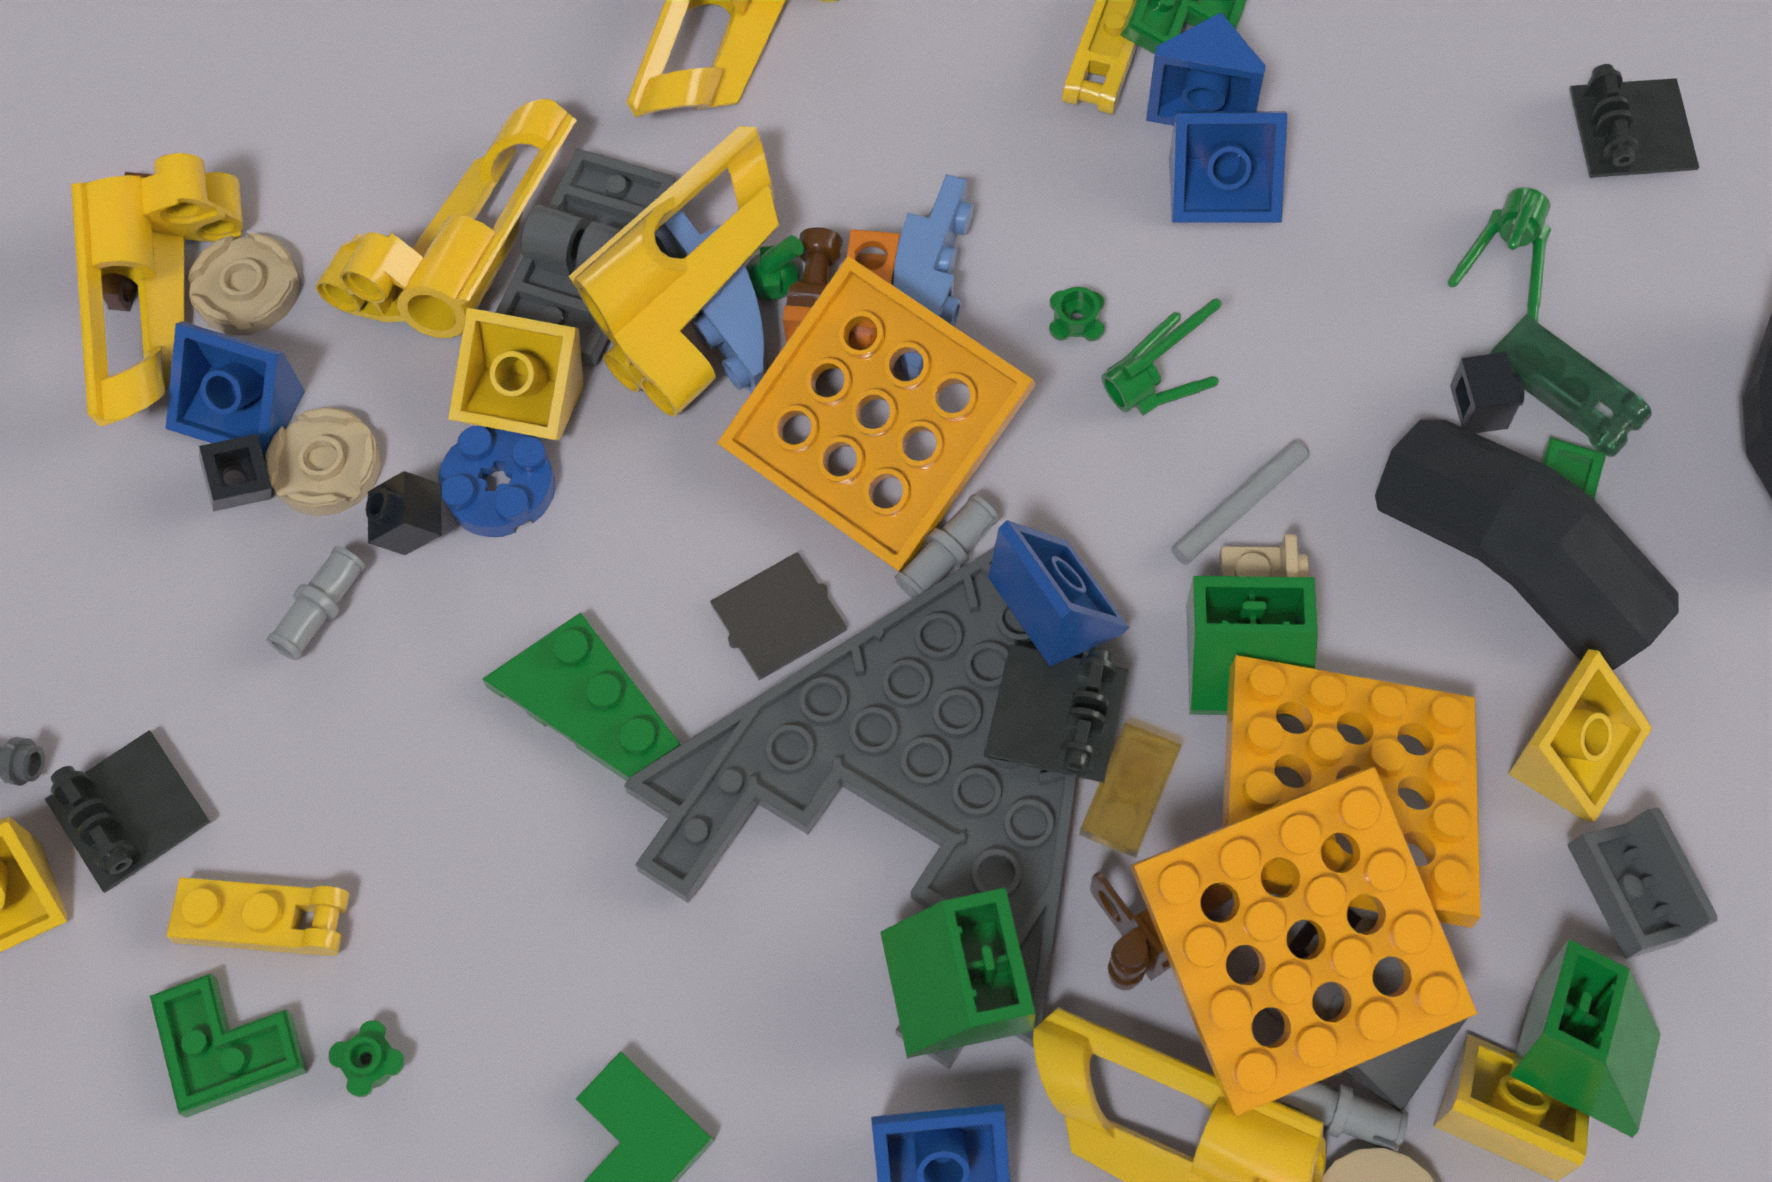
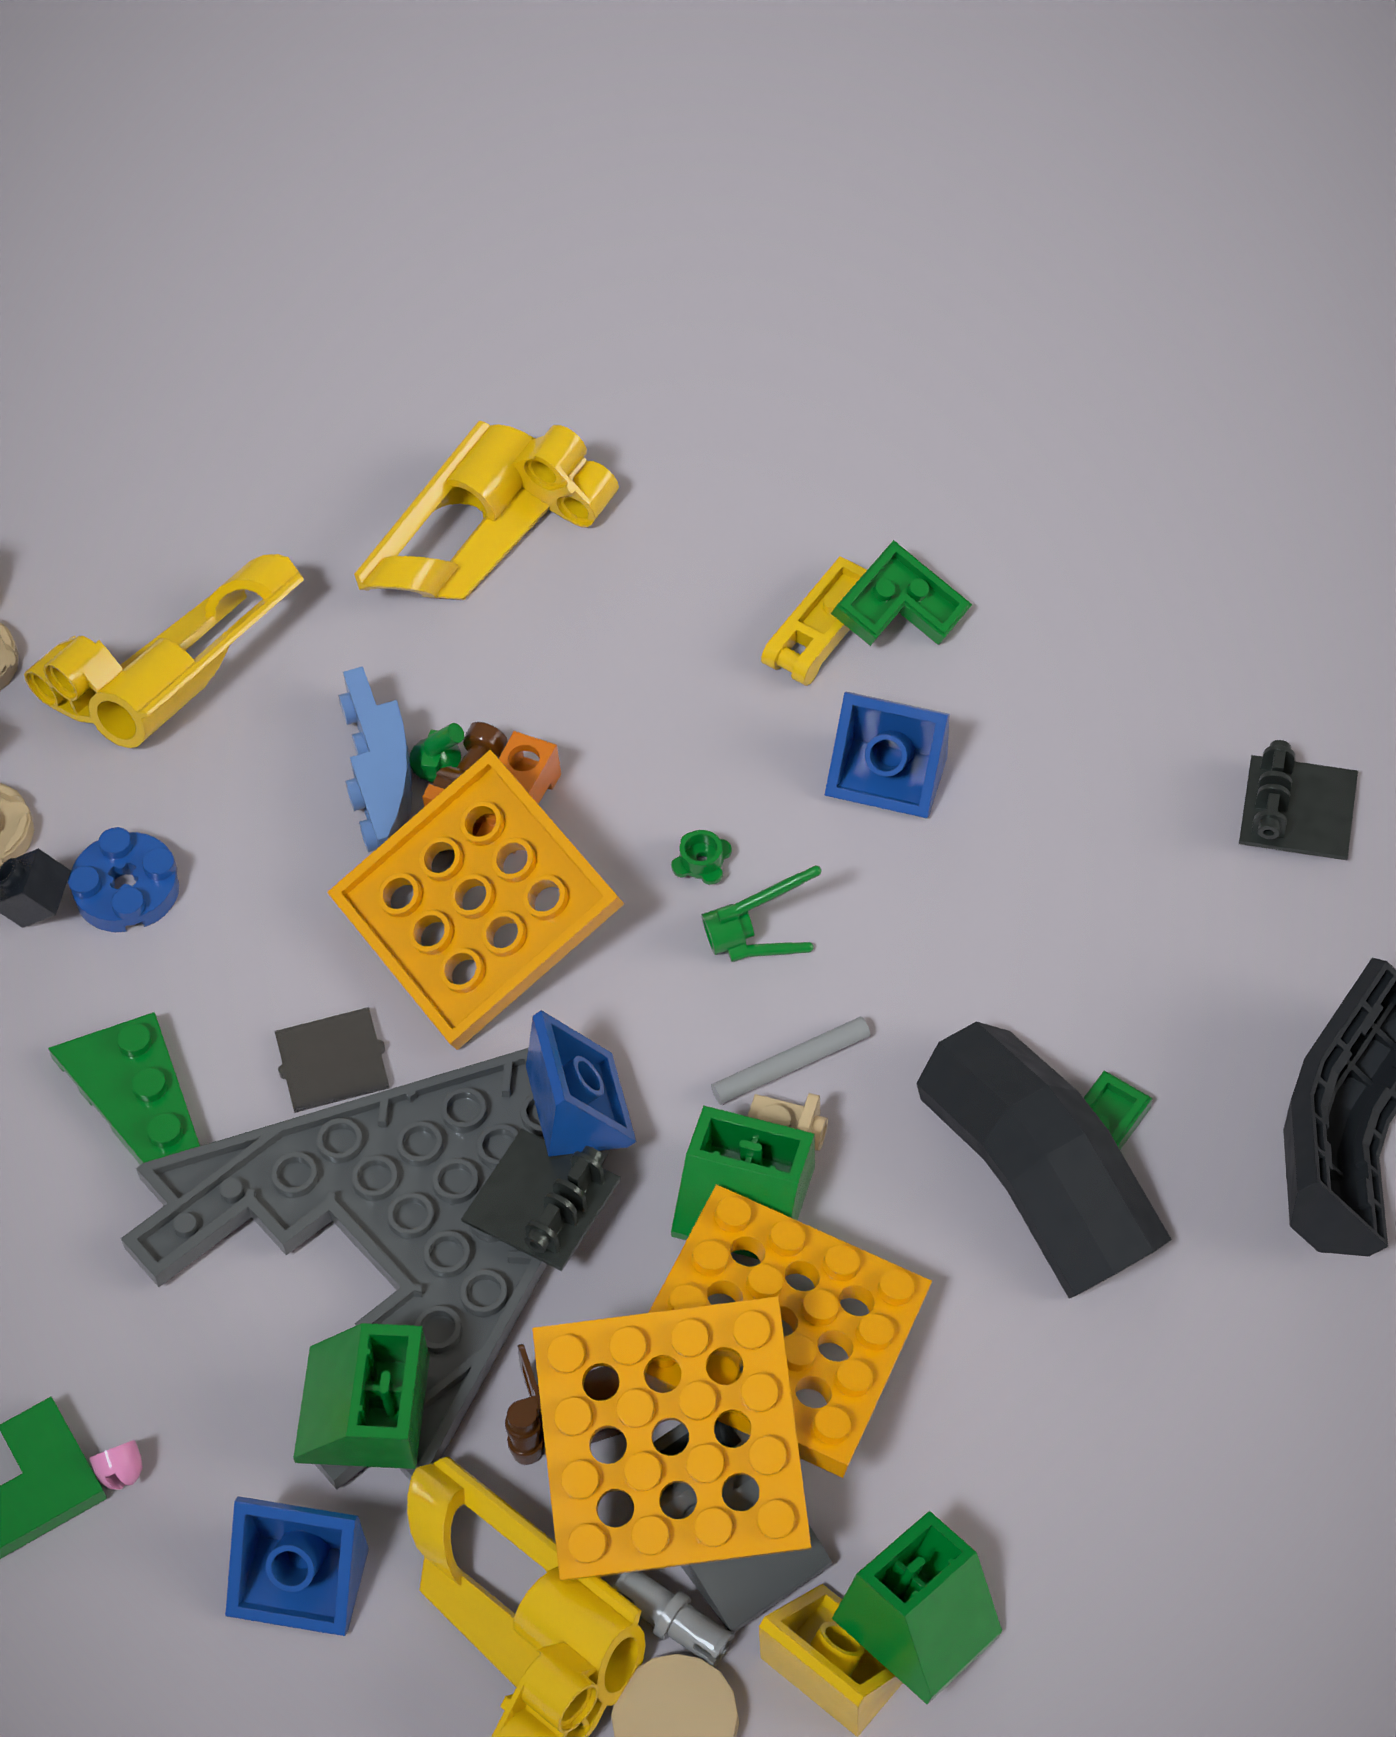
camera: 15 degrees right, 10 degrees down
(517, 374) = (171, 791): yellow slope -> none
(585, 212) = (269, 702): dark grey plate -> none
(649, 298) = (306, 746): yellow panel -> none
(716, 1105) = (118, 1465): none -> bright pink hinge
(928, 259) = (581, 772): medium blue slope -> none
(947, 547) = (500, 1035): light grey pin -> none
(1131, 790) = (594, 1282): clear yellow plate -> none
(1204, 71) = (887, 661): blue slope -> none
(1487, 392) = (1057, 1015): black plate -> none
(1519, 224) = (1149, 870): green plant -> none
(1573, 386) = (1140, 1026): clear green plate -> none
(1584, 741) = (1025, 1345): yellow slope -> none
(1643, 883) = (1029, 1489): dark grey bracket -> none

